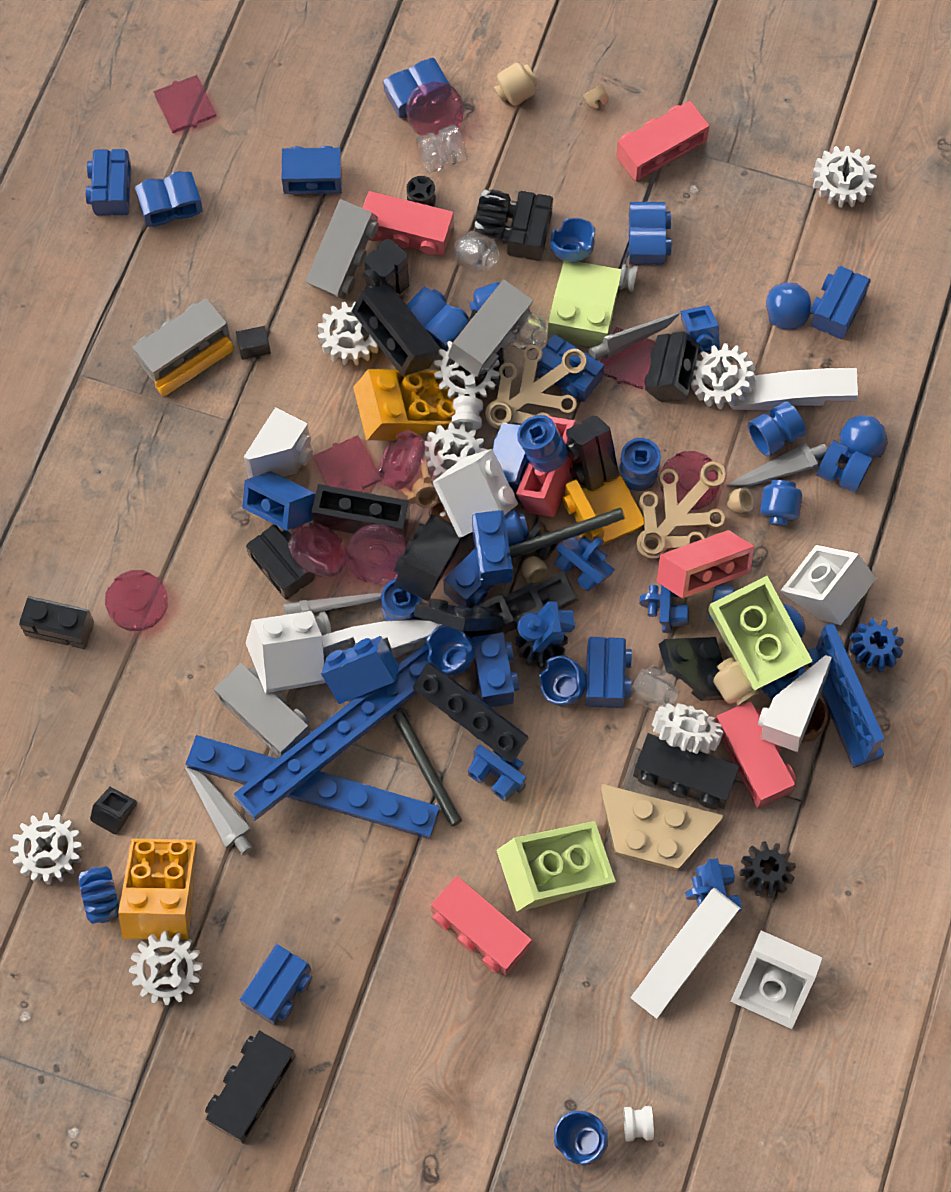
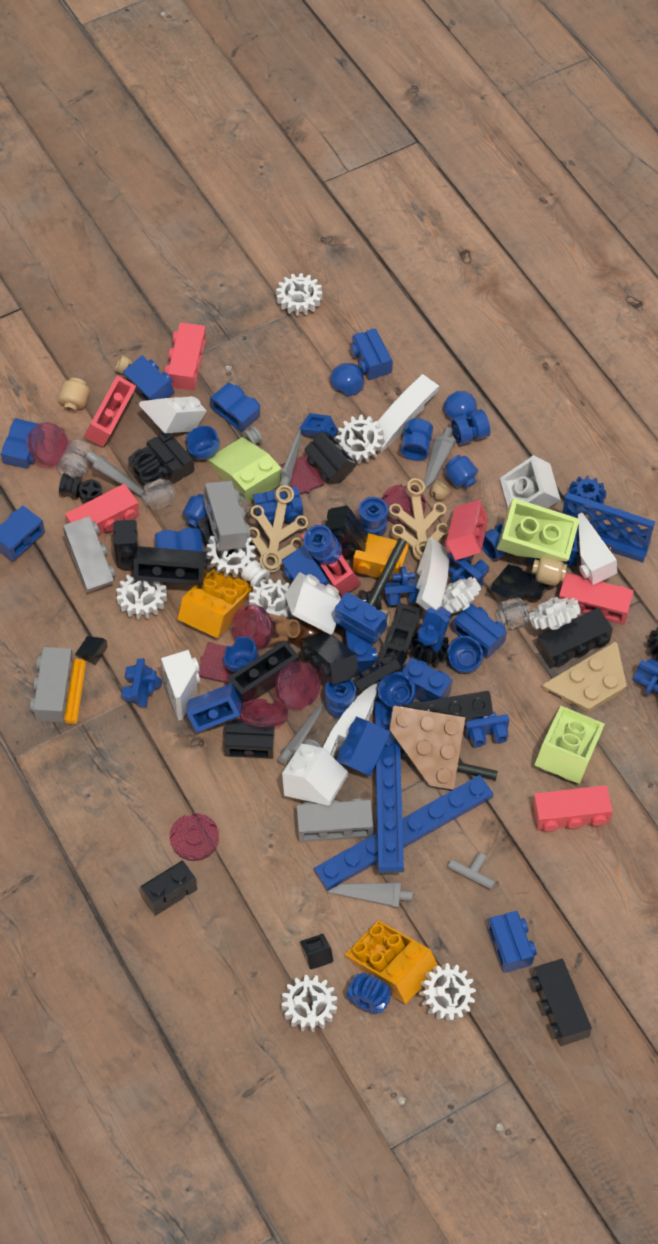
camera: 50 degrees left, 10 degrees down
(252, 415) = (144, 683): none -> blue hips
(325, 887) = (473, 872): none -> light grey piece
(362, 474) = (240, 653): none -> blue hair
(410, 166) = (70, 485): none -> black wheel
(422, 728) = (430, 742): none -> medium nougat plate
(458, 185) = (106, 467): none -> light grey bar
(525, 129) = (109, 411): none -> coral brick
(578, 186) = (175, 414): none -> white slope
(595, 133) = (148, 379): none -> blue brick
(616, 577) = (433, 575): none -> white slope
(619, 618) = (460, 594): none -> white gear

